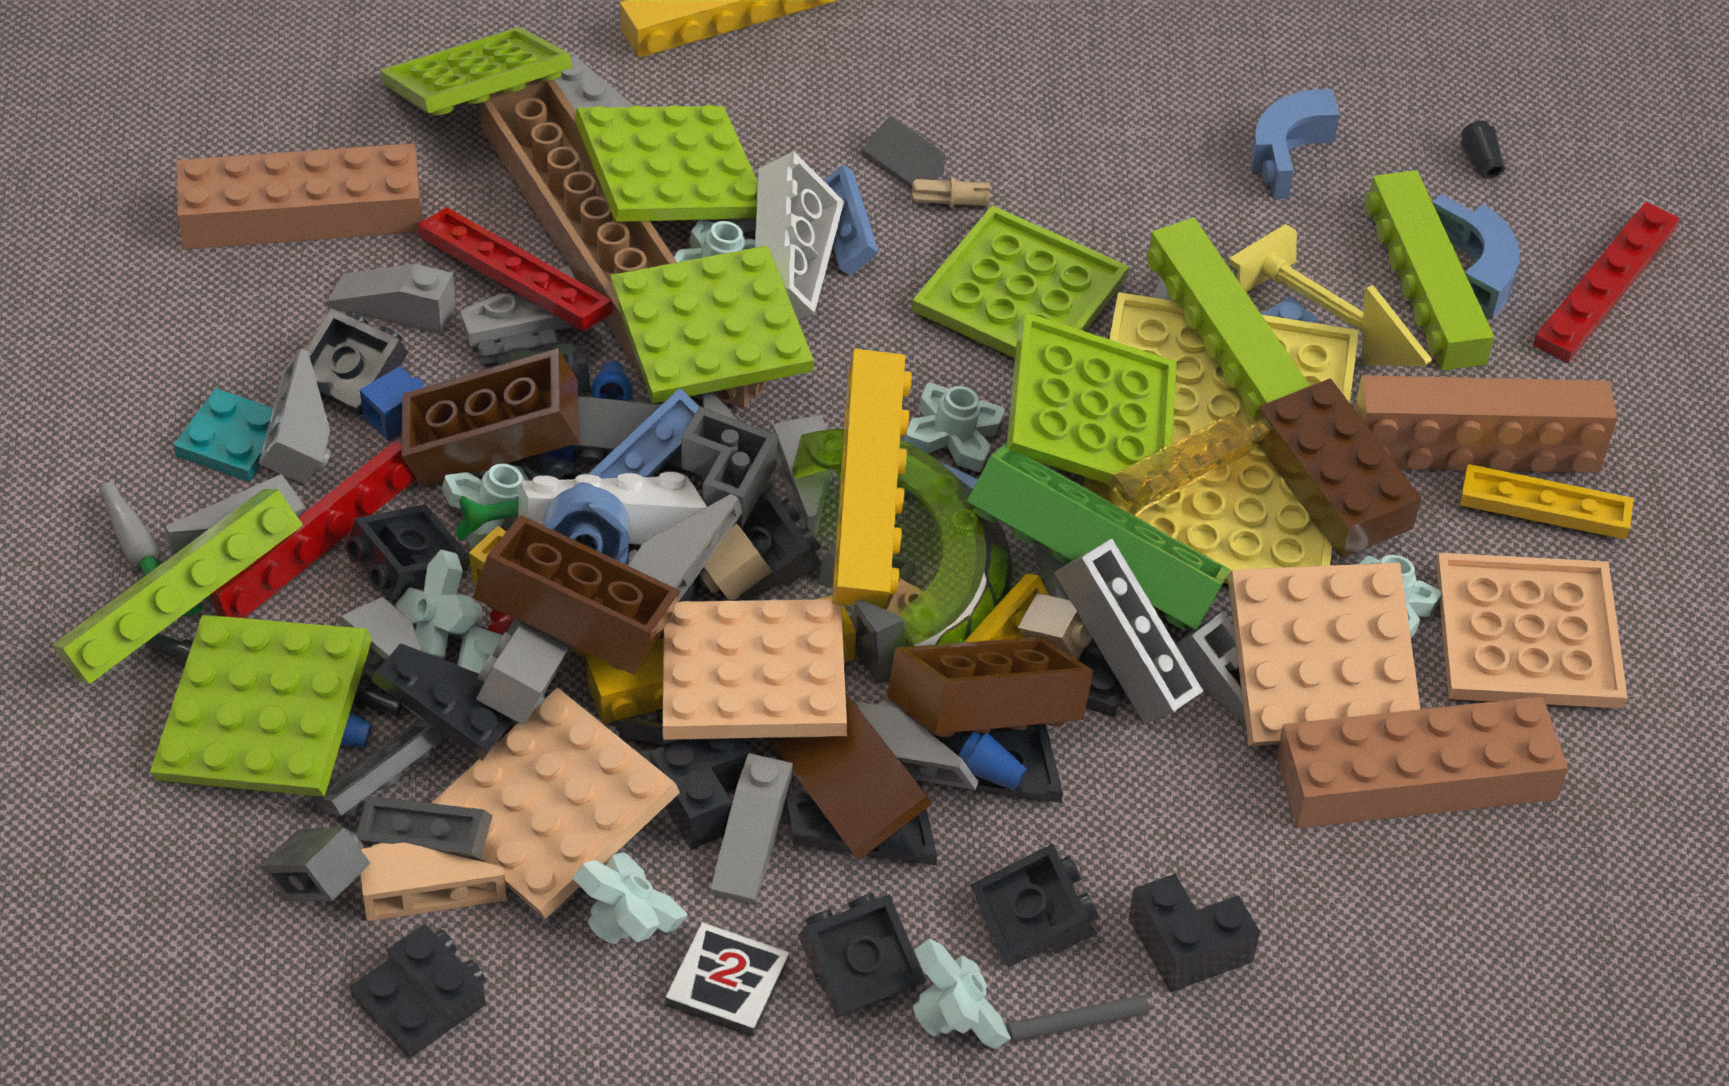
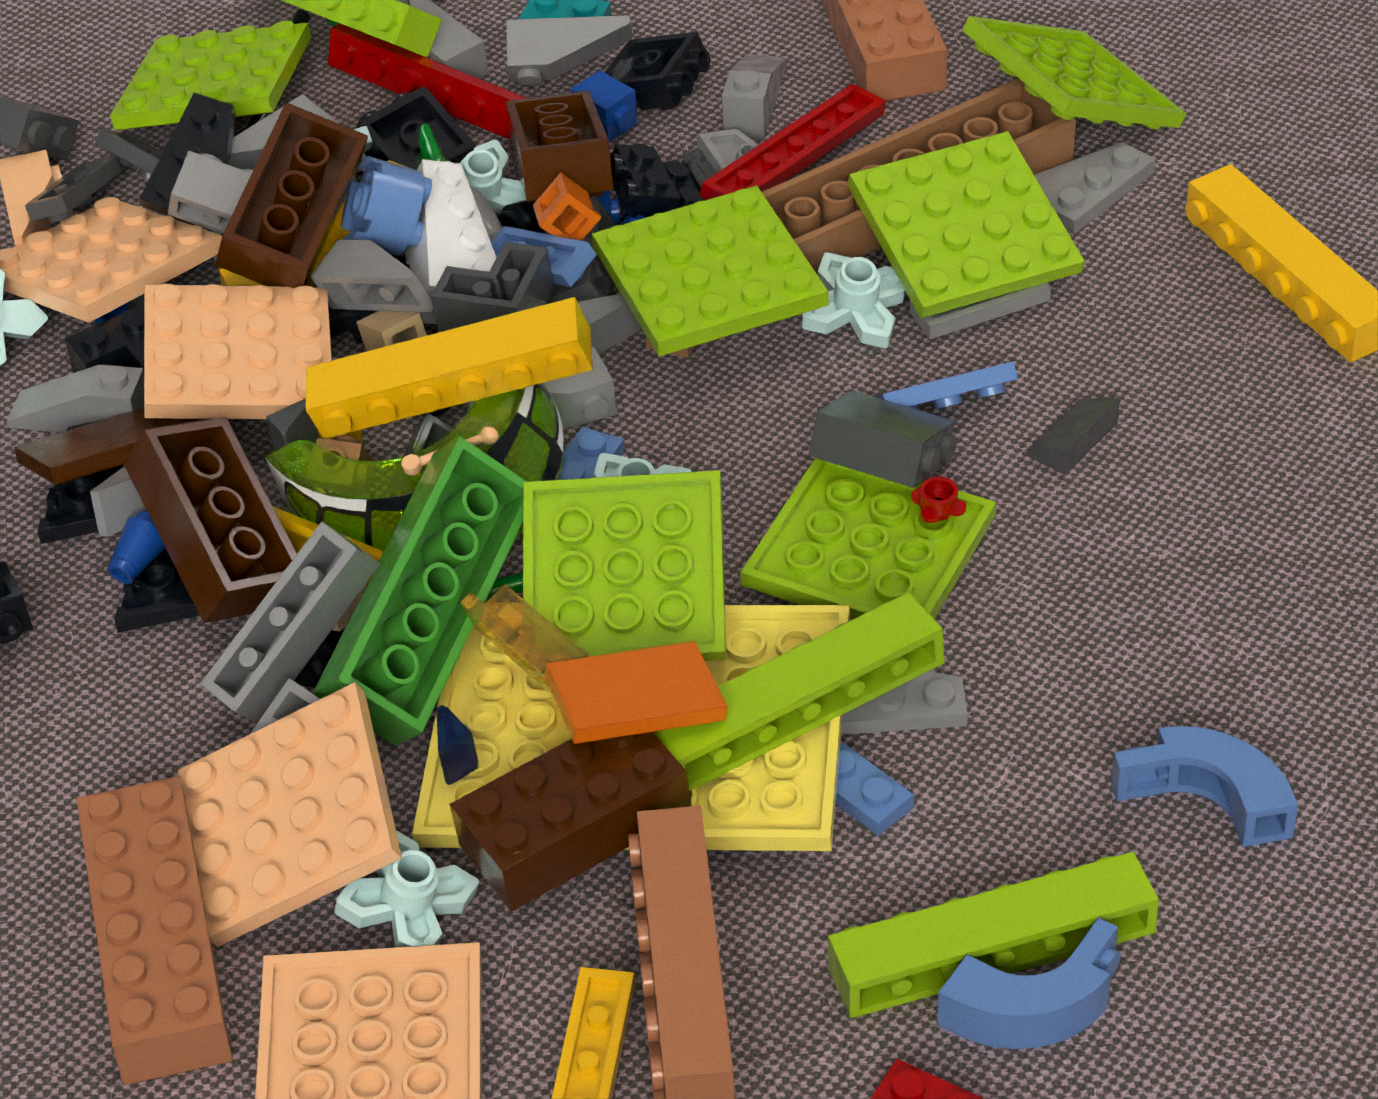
camera: 90 degrees right, 5 degrees down
(628, 407) = (566, 209): none -> orange brick
(799, 225) = (887, 334): white wedge -> none
(920, 254) = (882, 438): none -> dark grey brick
(951, 192) = (1019, 474): tan axle -> none
(966, 522) = (413, 464): none -> light nougat hinge
(998, 230) = (938, 499): none -> red plate
(1256, 544) = (455, 746): none -> clear blue slope
(1257, 394) = (635, 692): none -> orange tile
(1384, 337) = (954, 758): light yellow piece -> none
(1483, 148) = (1259, 1000): black cone -> none

